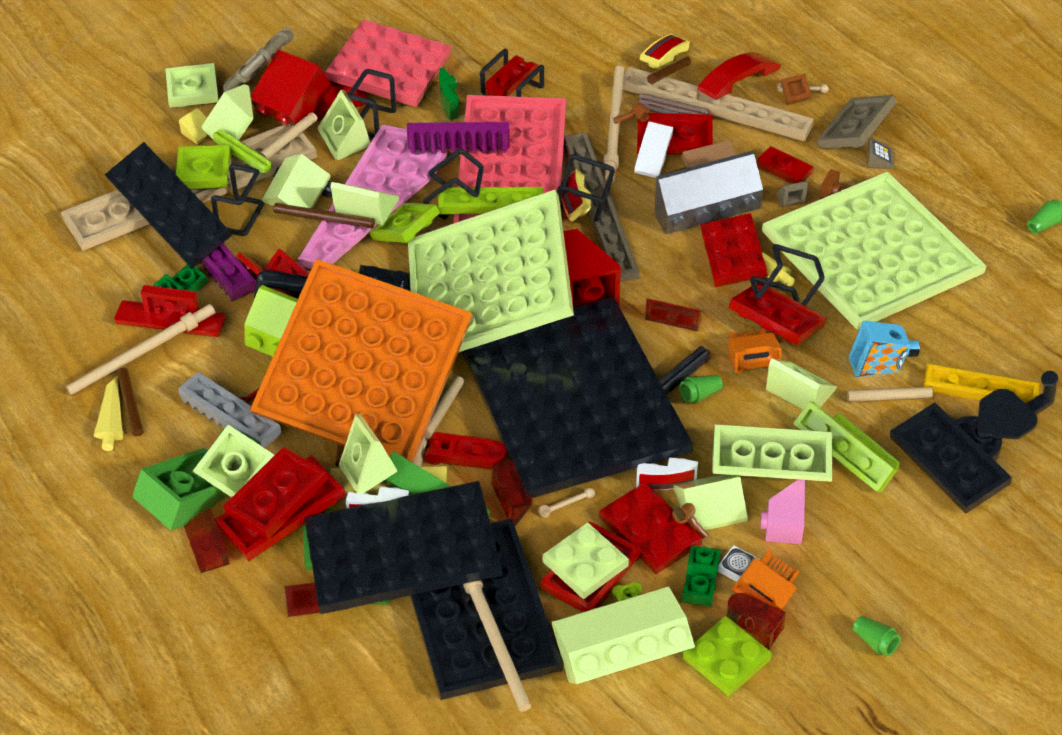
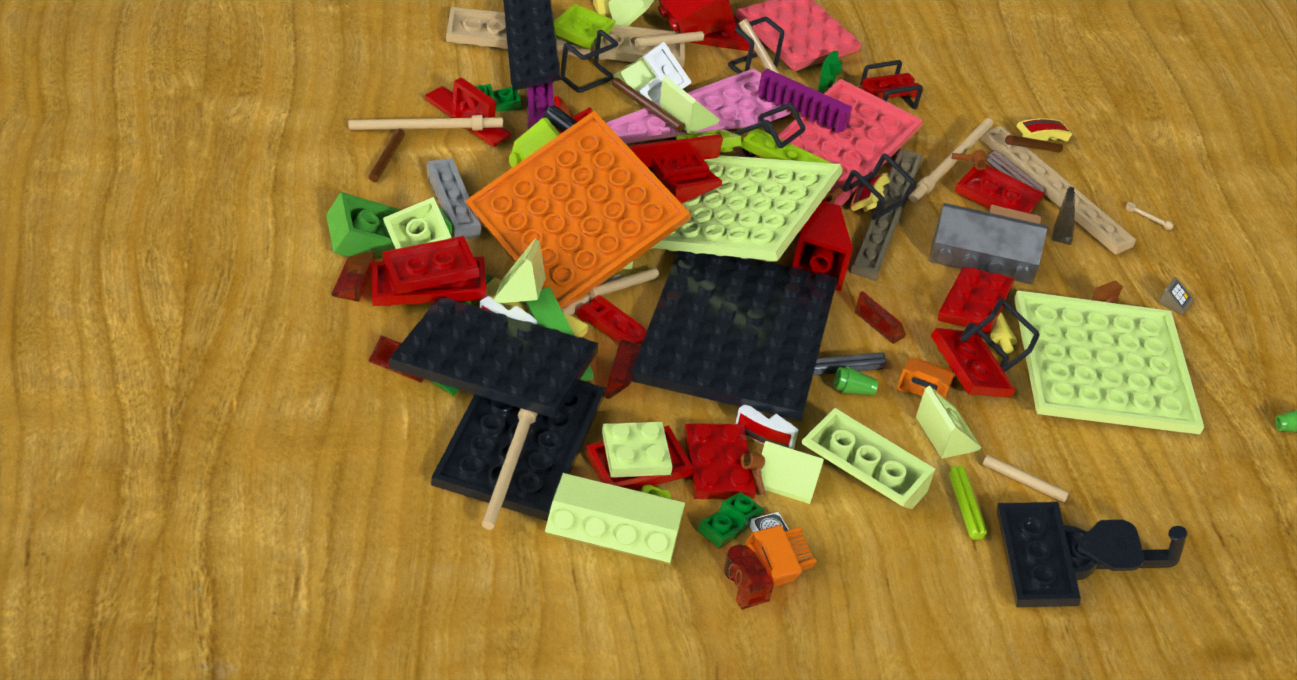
camera: 25 degrees right, 5 degrees down
(109, 420) = (359, 160): light yellow bar -> none
(243, 151) = (624, 32): lime axle -> none
(320, 175) = (662, 64): none -> white plate
(343, 128) = (720, 56): yellowish green slope -> none
(382, 106) = (758, 47): none -> tan bar
(403, 257) = (680, 155): none -> red bracket
(430, 280) = (691, 185): none -> red slope
(544, 510) = (642, 401): tan hinge -> none
(653, 149) = (969, 189): white slope -> none
(721, 79) = (1073, 170): red slope -> none
(727, 656) = (699, 591): lime plate -> none
(747, 131) = (1065, 221): none -> clear smoke slope
(784, 165) = (1080, 263): red plate -> none
(785, 515) = (845, 514): bright pink slope -> none
(792, 194) = (1068, 285): dark tan slope -> none
(796, 89) = (1139, 211): dark orange plate -> none
(848, 447) = (947, 496): lime plate -> none
(856, 122) = (1174, 260): dark tan plate -> none
(878, 636) = (846, 652): bright green cone -> none
(880, 349) = (1044, 436): medium azure torso -> none
(975, 384) = (1105, 507): yellow tile -> none

